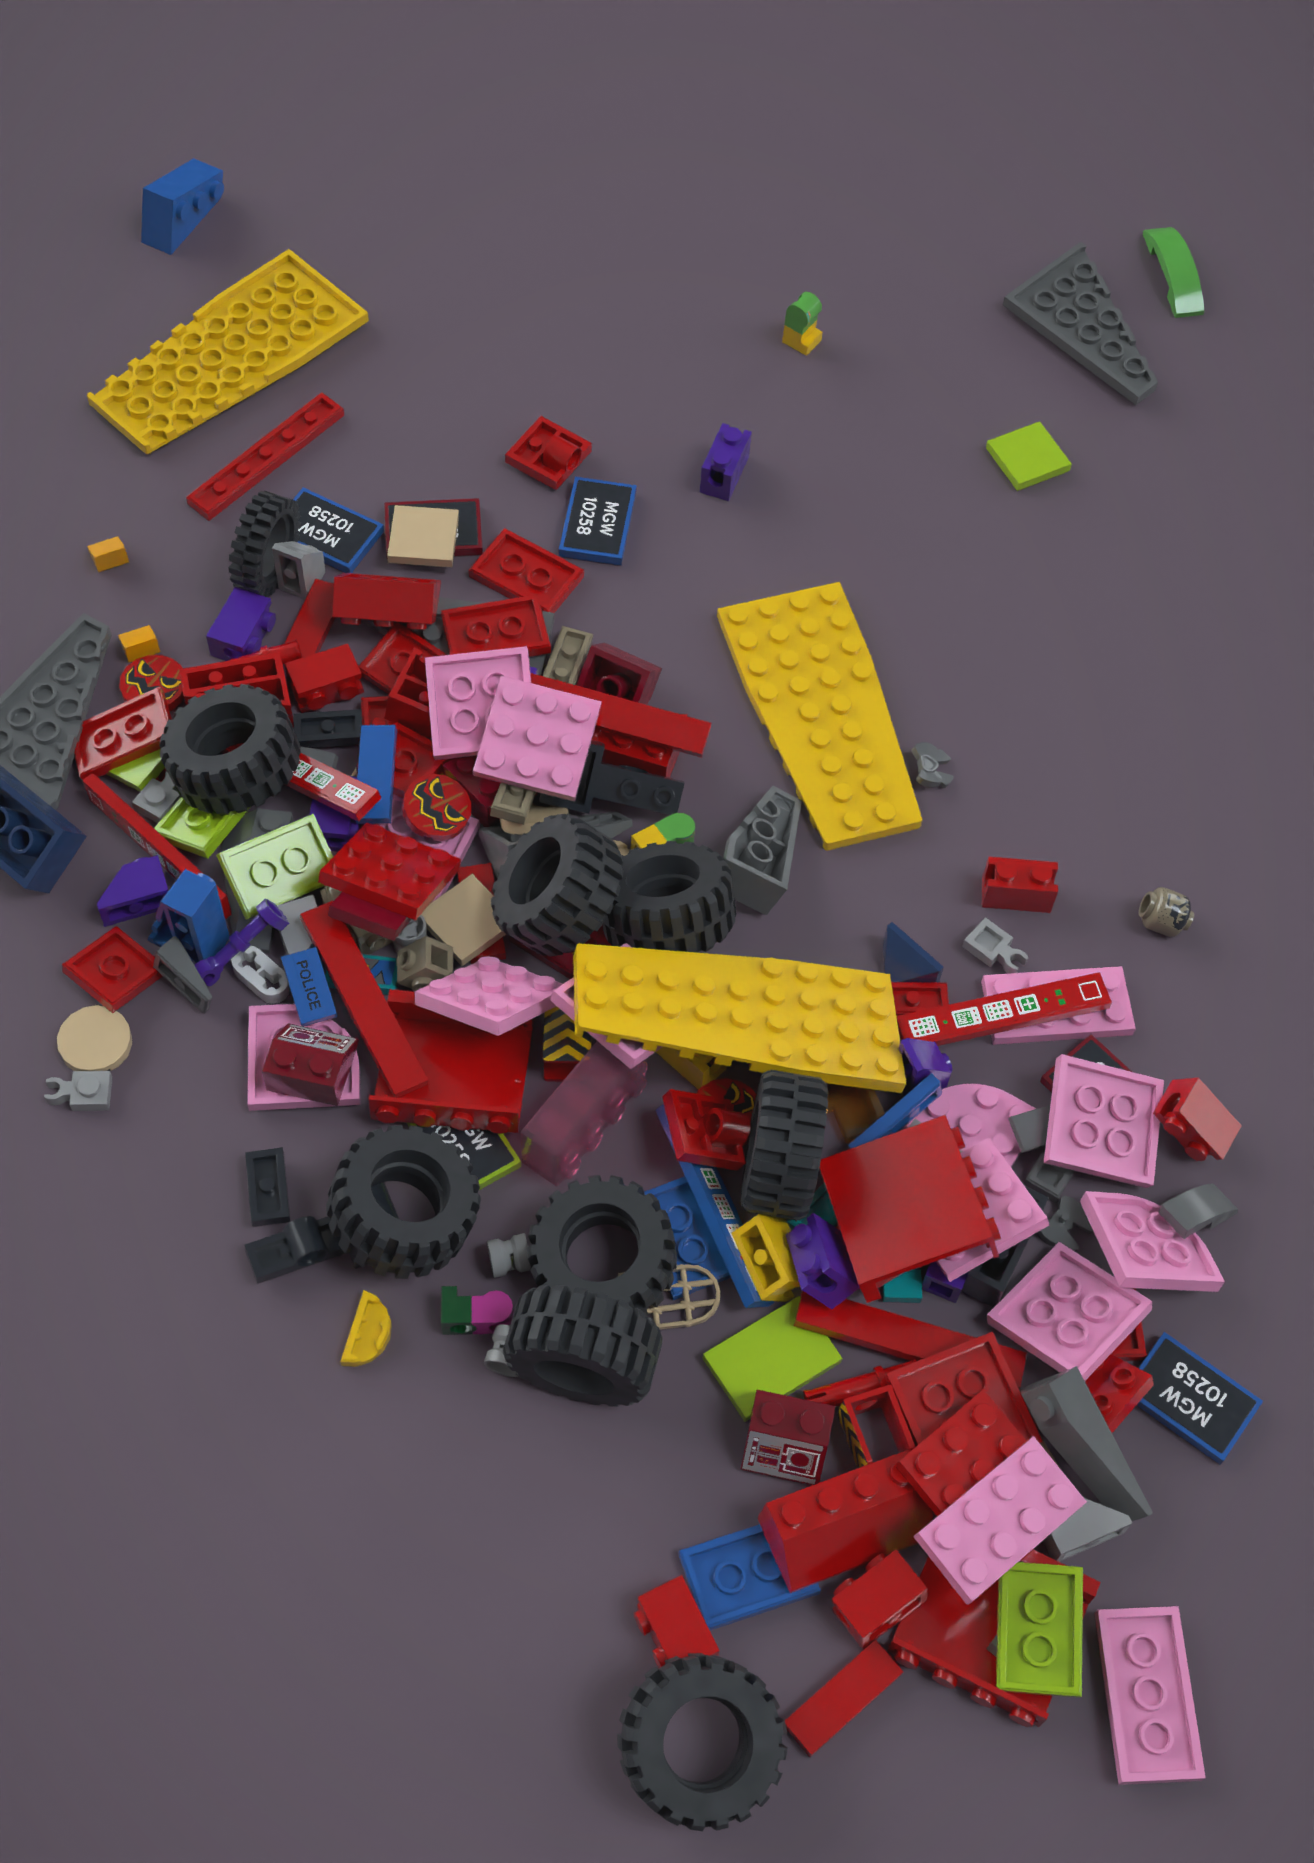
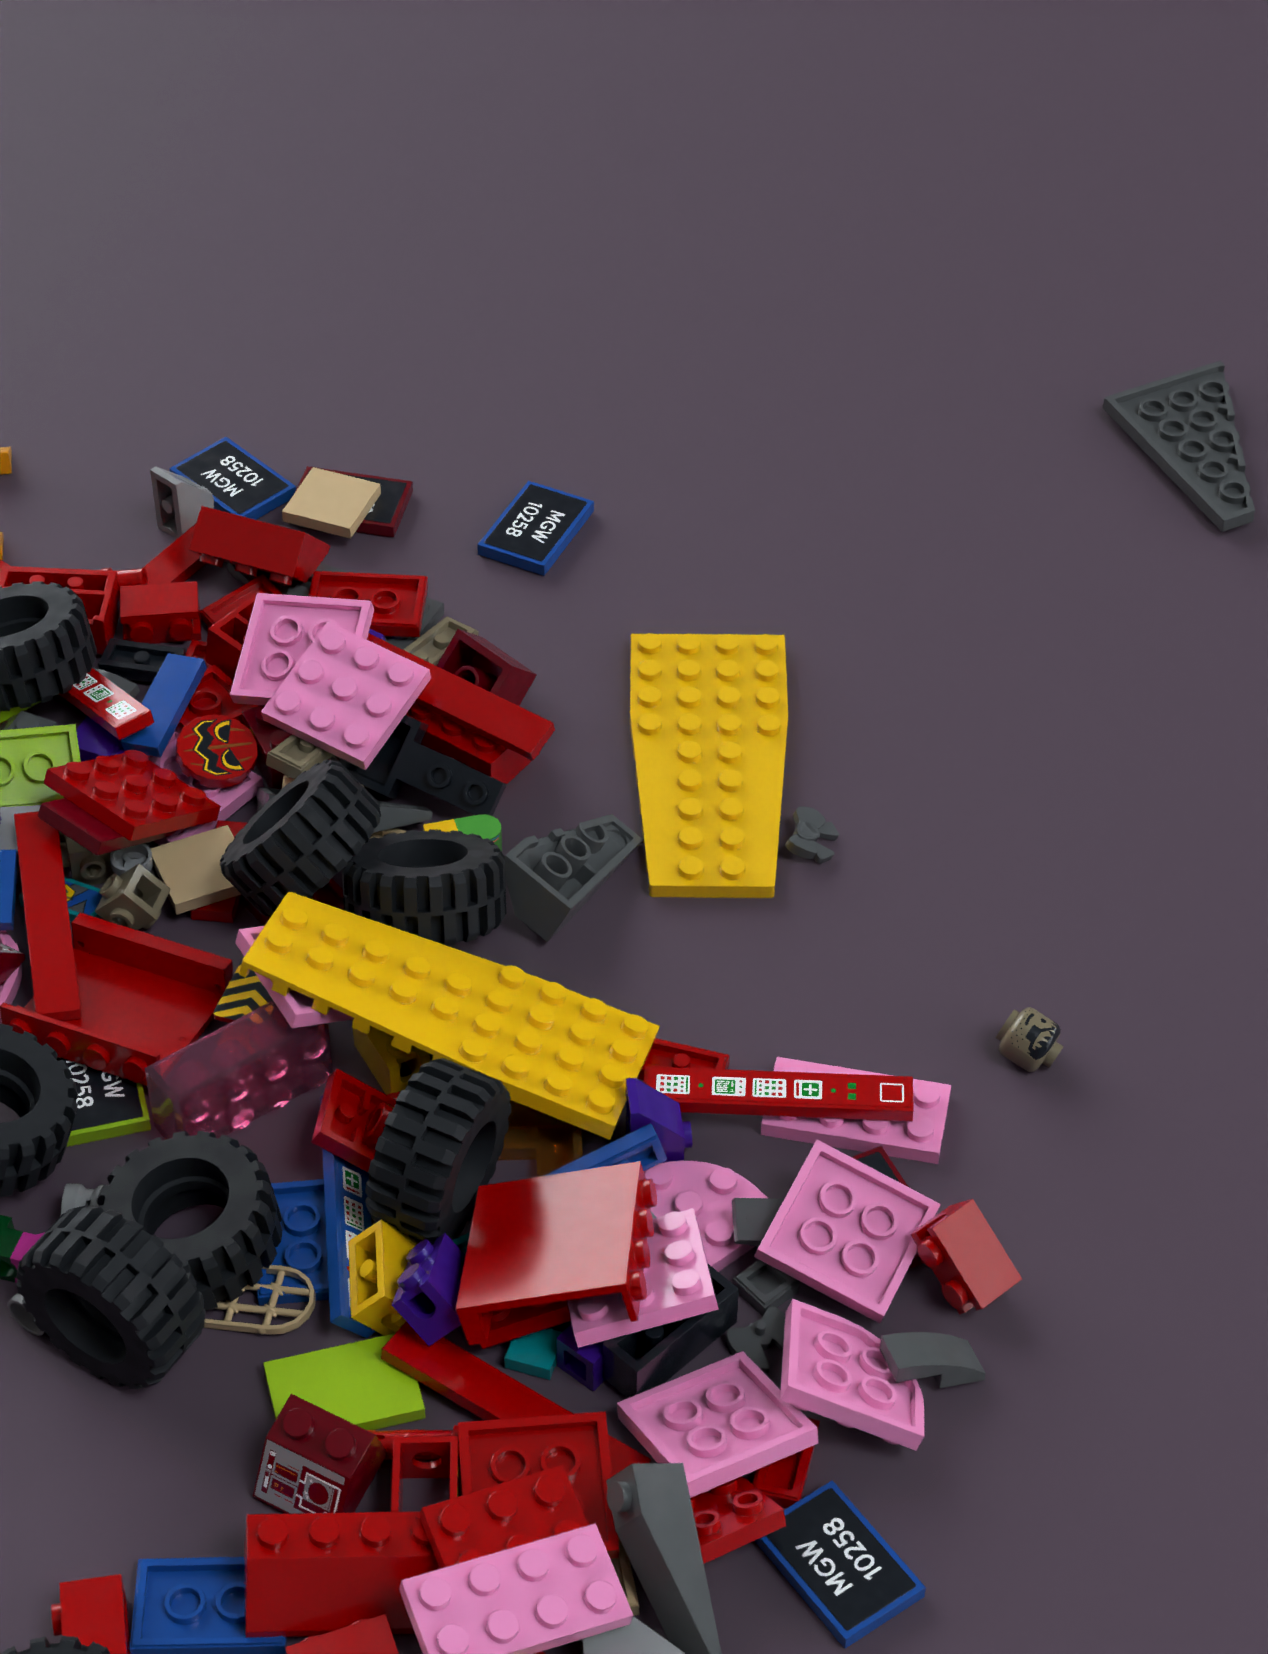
camera: 20 degrees right, 15 degrees down
(179, 203) = (219, 162): blue wedge -> none
(228, 352) = (213, 302): yellow wing -> none
(240, 625) = (96, 543): dark purple brick -> none
(265, 456) = (201, 403): red tile -> none
(266, 522) = (128, 454): black tyre -> none
(489, 995) = (173, 935): bright pink plate -> none
(525, 569) = (434, 552): red tile -> none
(548, 452) = (509, 453): red plate -> none
(727, 457) = (704, 494): dark purple brick -> none
(801, 323) = (851, 381): leg -> none
(906, 959) = (691, 1019): dark blue slope -> none
(993, 944) = (802, 1027): light grey plate -> none
(1019, 884) = (860, 972): red brick -> none
(1028, 456) = (1068, 557): lime tile -> none

